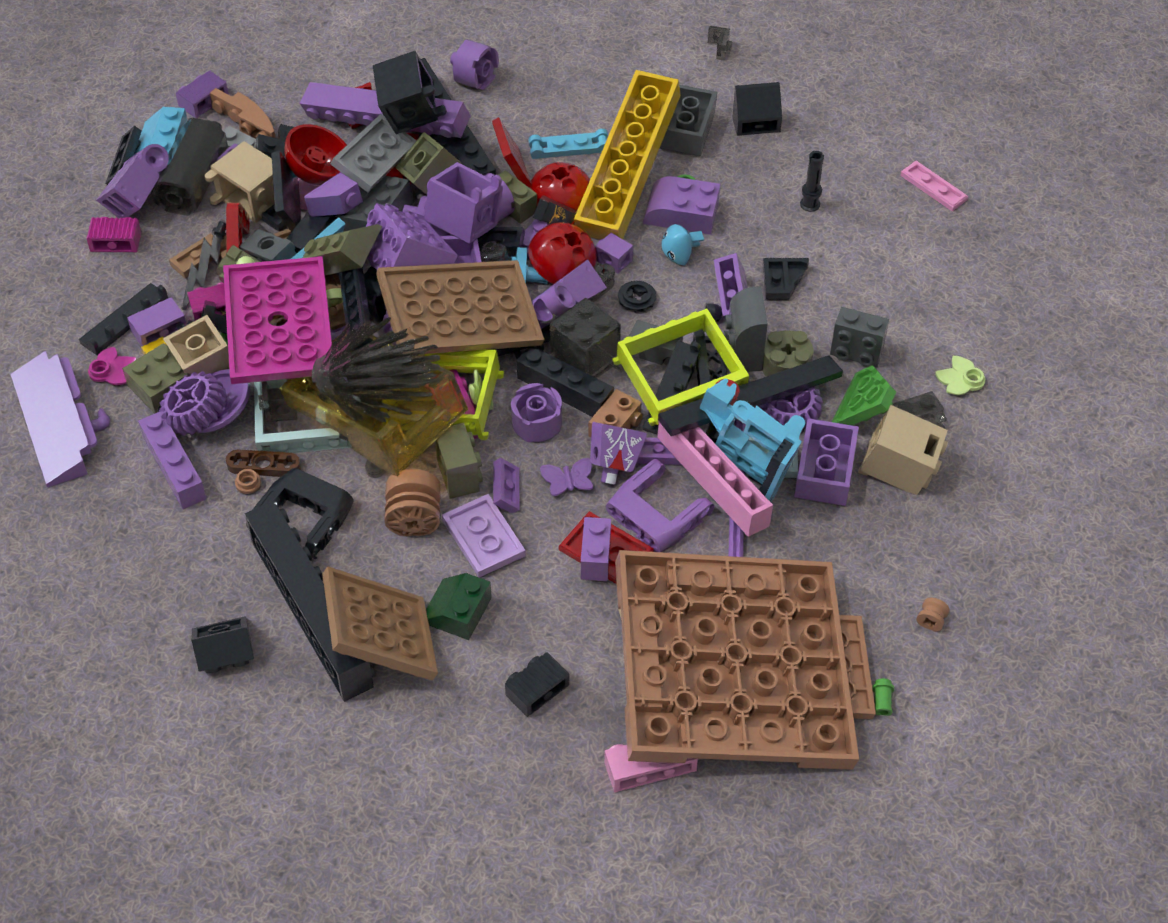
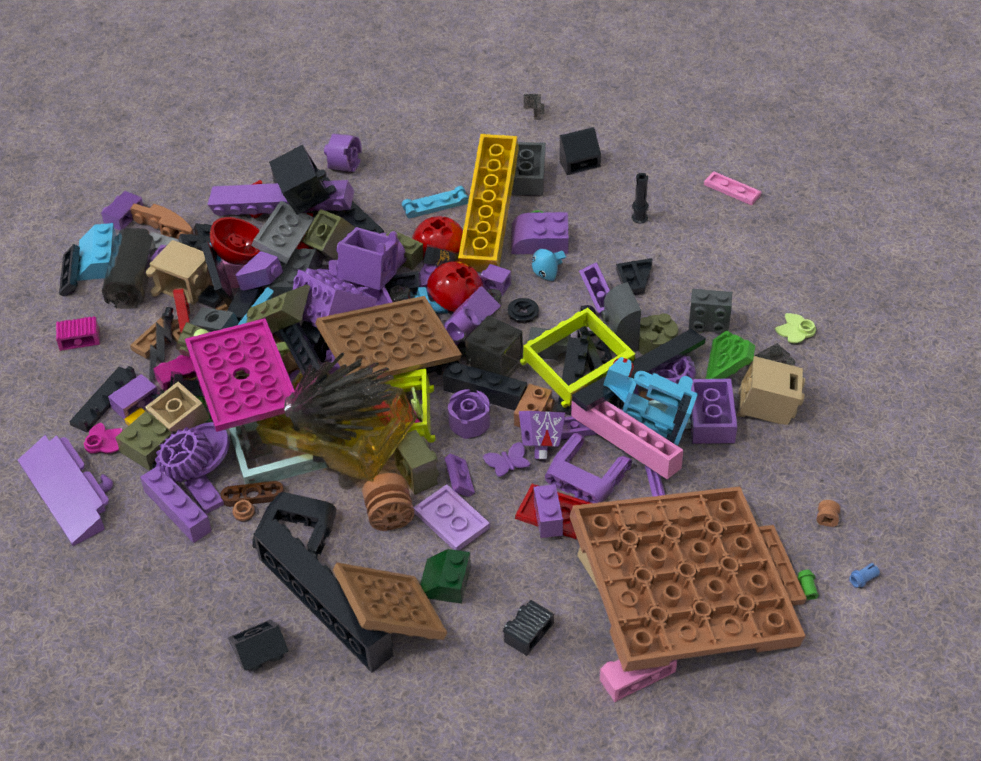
camera: 10 degrees left, 5 degrees down
(134, 181) = (86, 287): medium lavender piece -> none
(209, 453) = (204, 493): none -> medium lavender plate
(511, 152) = (392, 214): red tile -> none
(949, 700) = (860, 577): none -> medium blue pin

